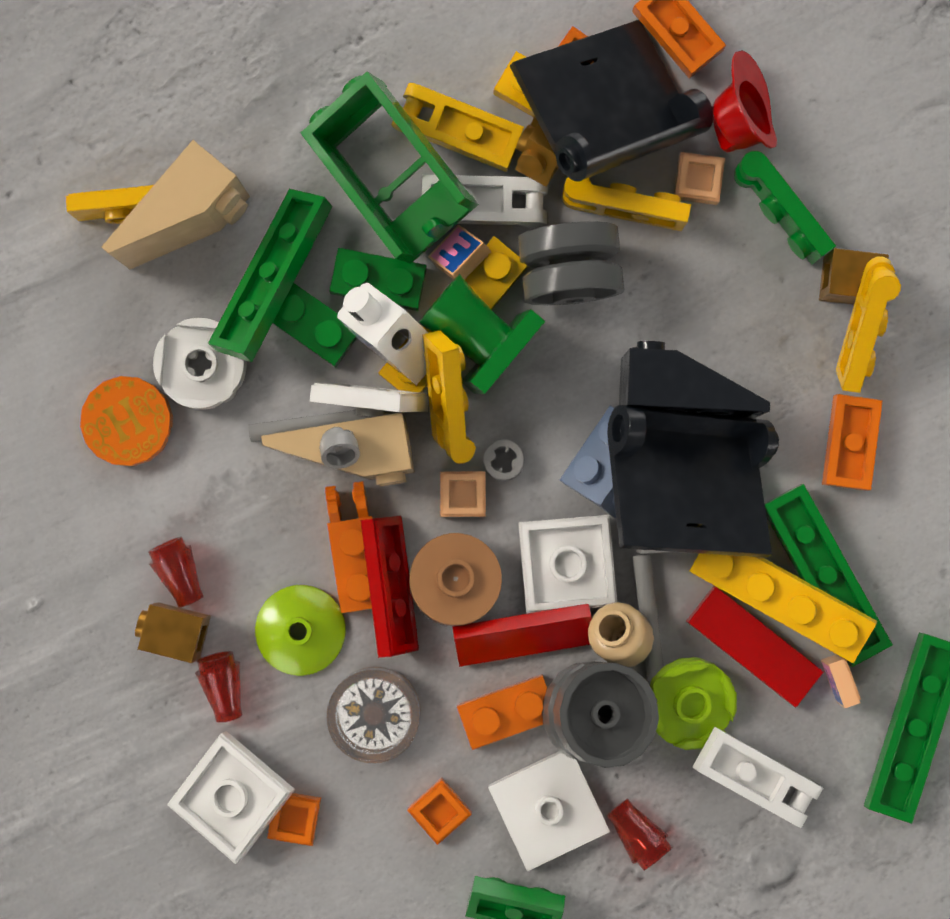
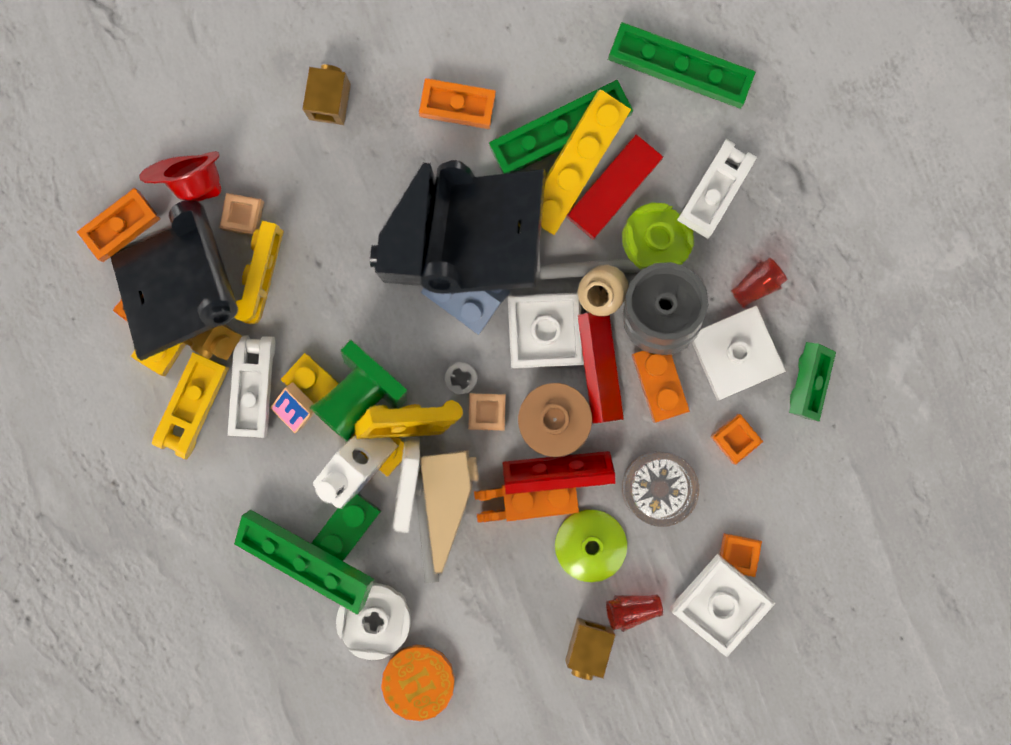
camera: 90 degrees left, 0 degrees up
(110, 204) = (240, 687): yellow plate -> none
(177, 570) = (539, 644): clear red cone -> none
(182, 207) = (244, 632): tan slope -> none
(339, 448) = (447, 509): light grey hinge -> none
(392, 277) = (310, 460): green plate -> none
(430, 214) = (260, 430): green door -> none
(571, 263) = (304, 318): dark grey wheel -> none
(783, 206) = (267, 148): green plate -> none
(841, 681) = (644, 120): light nougat tile -> none
(867, 322) = (363, 86): yellow plate -> none

